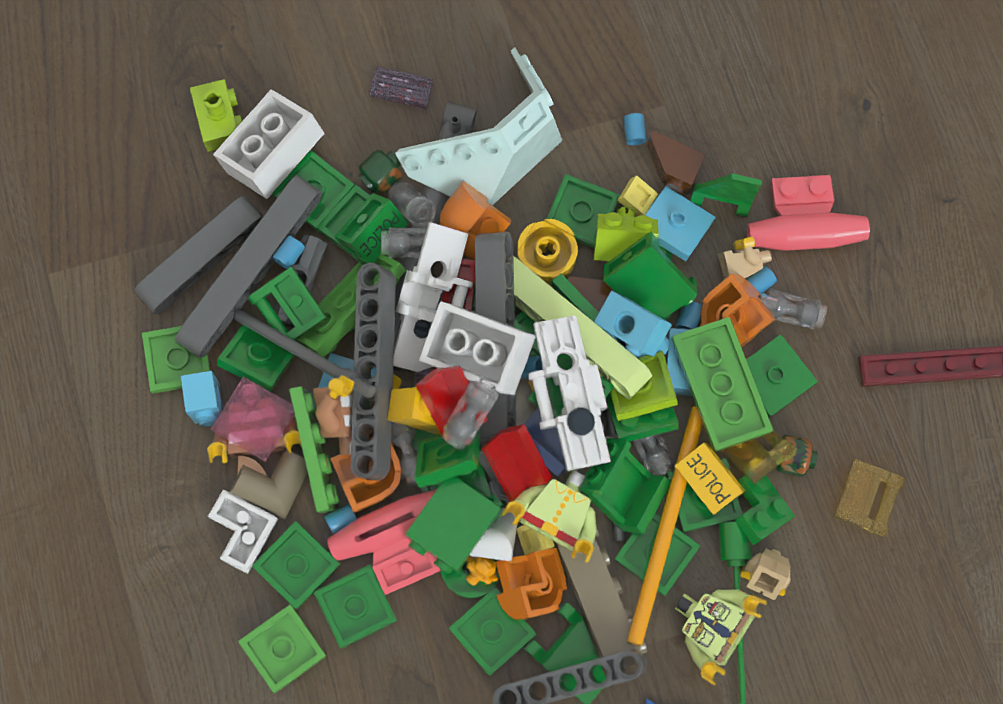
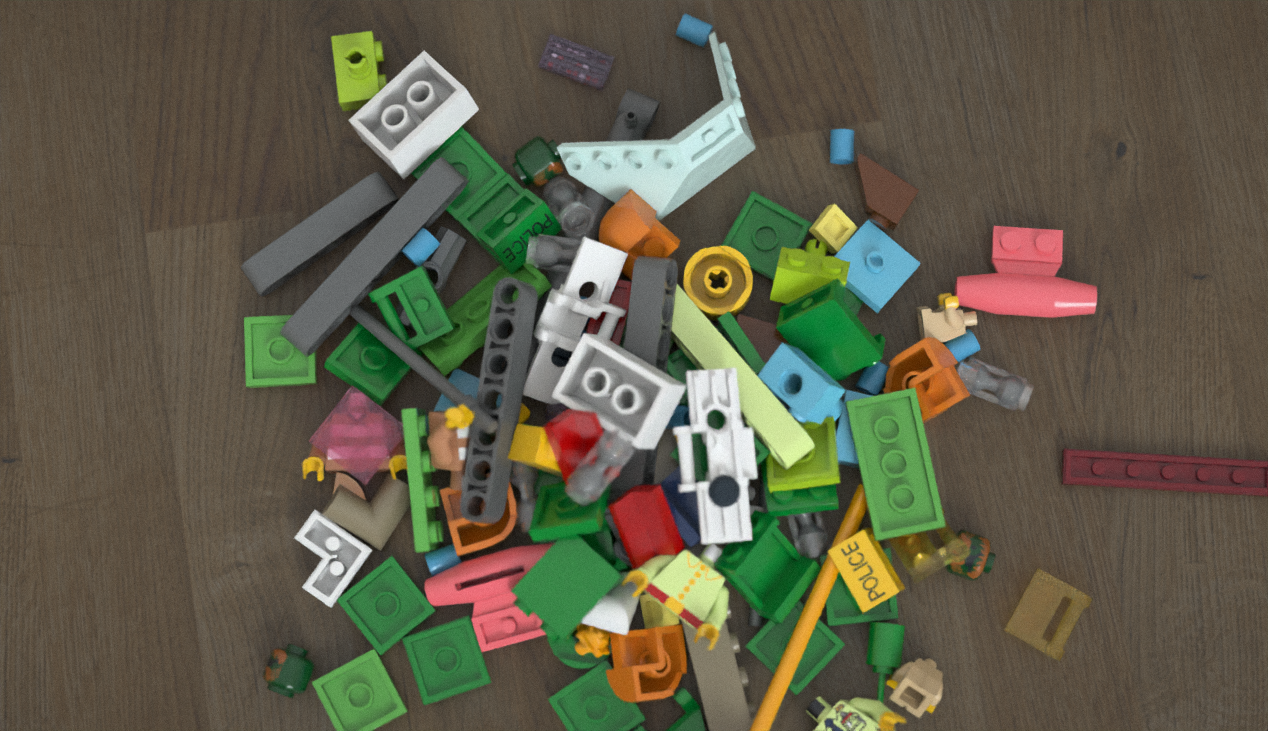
camera: 15 degrees right, 5 degrees up
(202, 397) = (304, 403): medium azure brick -> none
(216, 634) = (288, 671): none -> dark green head
(497, 49) = (694, 30): none -> dark azure hinge
(729, 189) = (938, 237): green flag -> none
(767, 510) = (928, 615): green plate -> none
(779, 375) = (964, 459): green plate -> none

